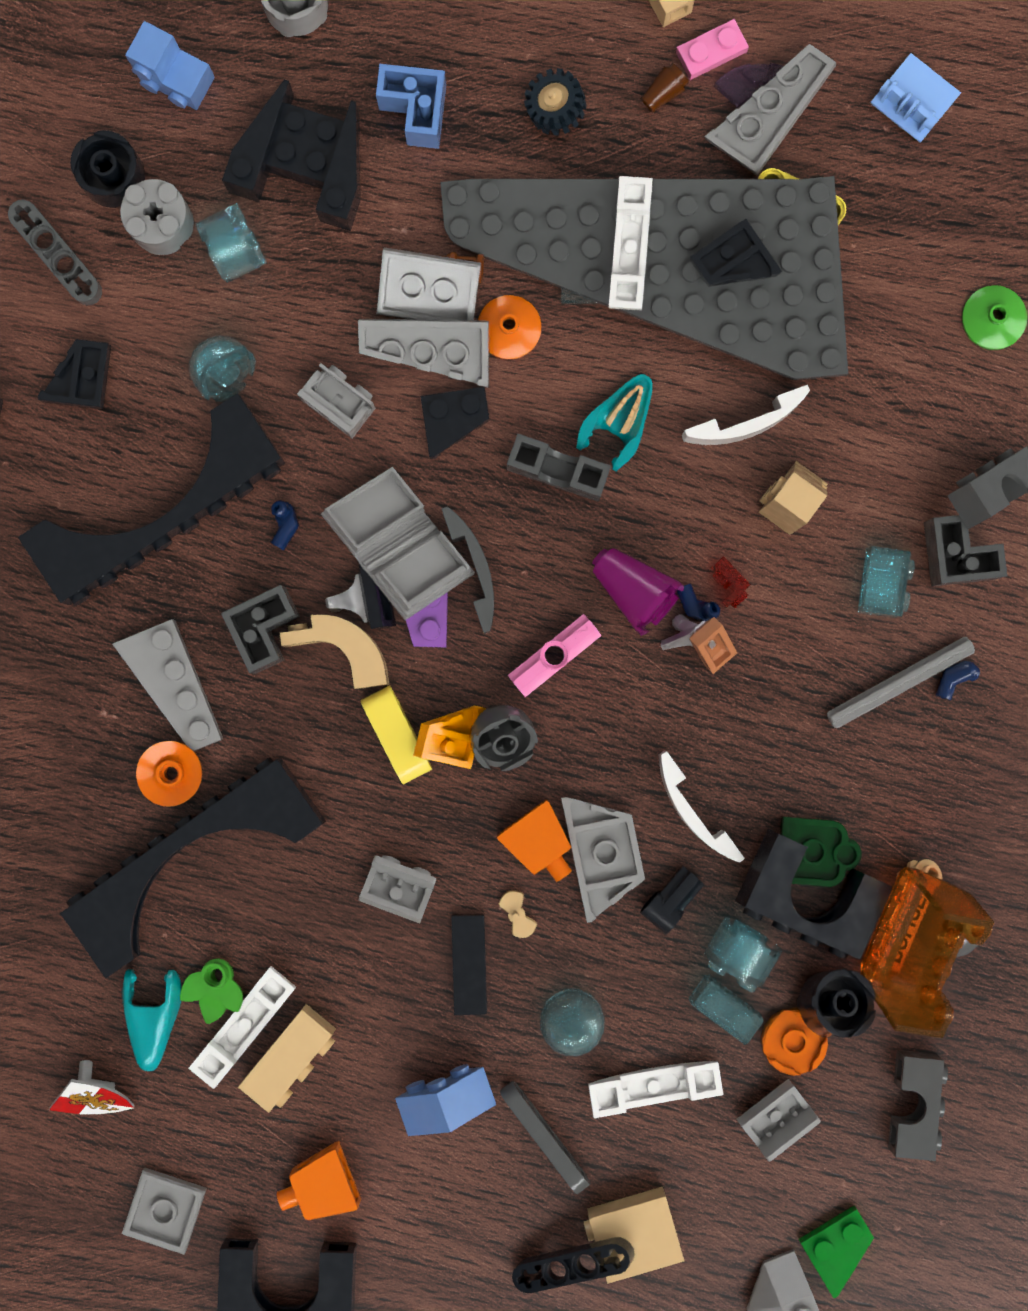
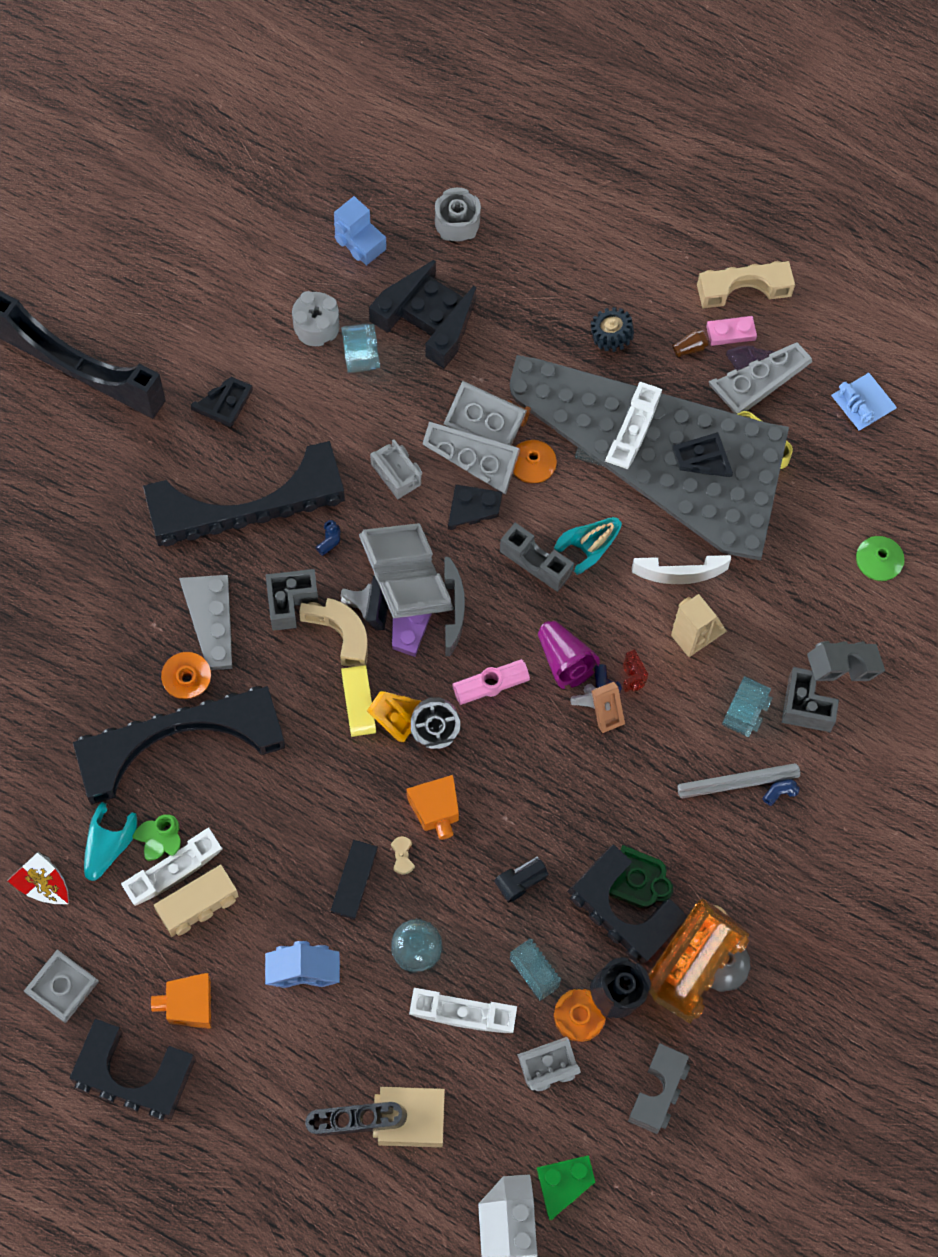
camera: 10 degrees right, 20 degrees down
(53, 254) = (235, 322): dark grey beam -> none
(108, 153) = (292, 277): black brick -> none
(220, 366) = (324, 422): clear light blue cylinder -> none
(398, 888) = (322, 805): light grey bracket -> none
(417, 93) = (519, 297): medium blue brick -> none
(545, 1137) = (367, 1022): dark grey beam -> none
(603, 854) = (480, 831): light grey wing -> none
(671, 777) = (568, 849): white slope -> none
(742, 954) = (560, 928): clear light blue brick -> none

